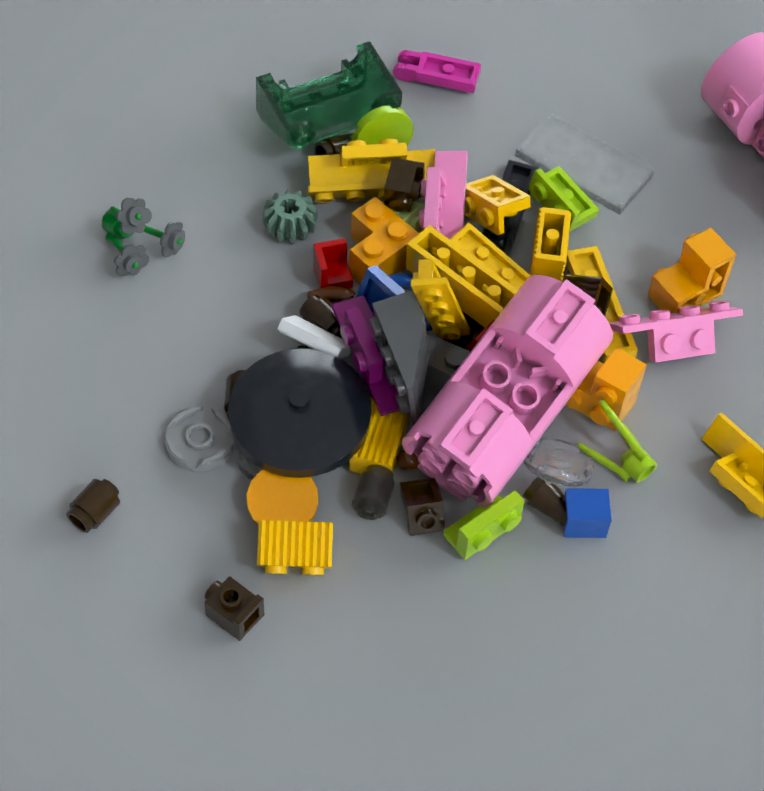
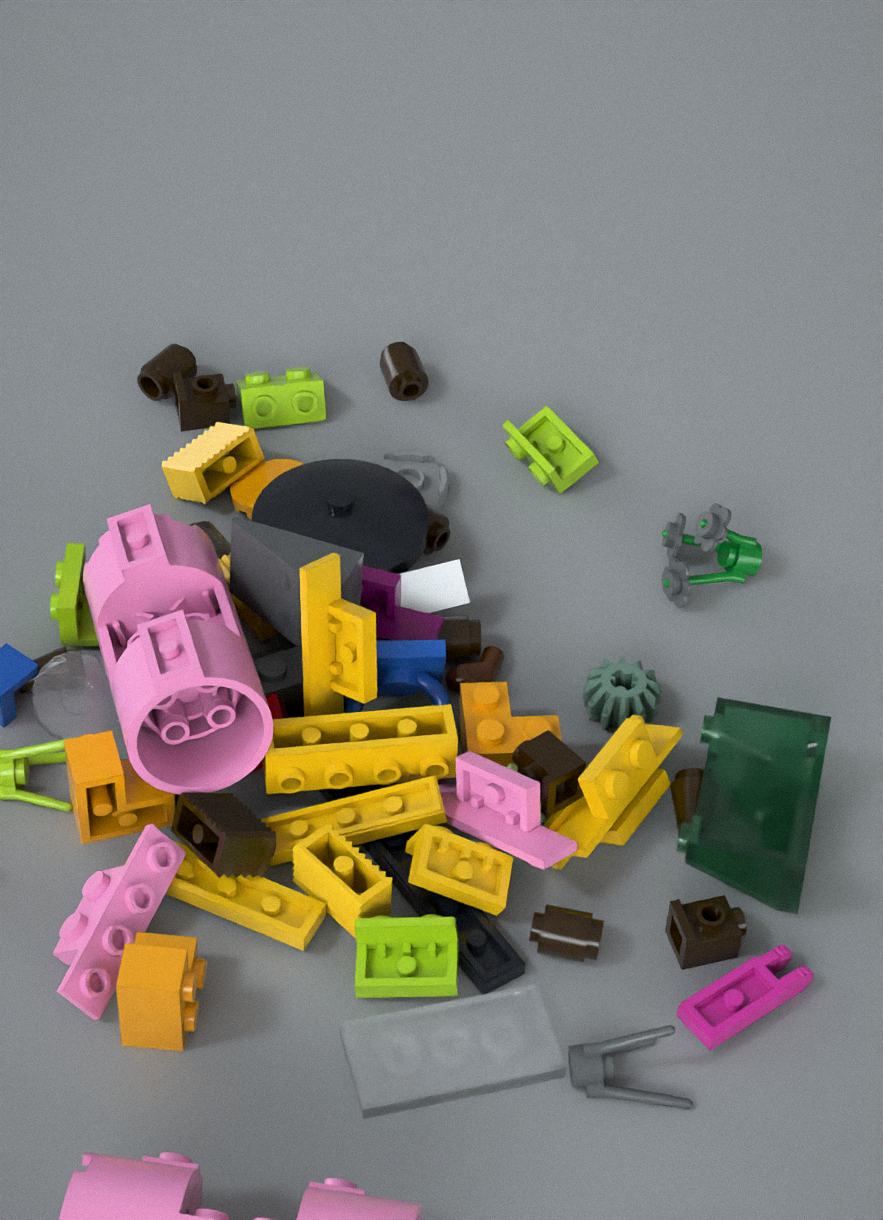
camera: 130 degrees right, 10 degrees down
(102, 372) = (551, 448): none -> lime bracket
(181, 566) = (281, 398): none -> lime bracket
(224, 651) = (157, 373): none -> dark brown brick
(331, 264) = (523, 676): red panel -> none
(384, 124) = (663, 832): lime tile -> none
(420, 101) = (704, 931): none -> dark brown brick
(480, 151) = (566, 933): none -> dark brown brick
(538, 100) = (594, 1062): none -> dark grey plant

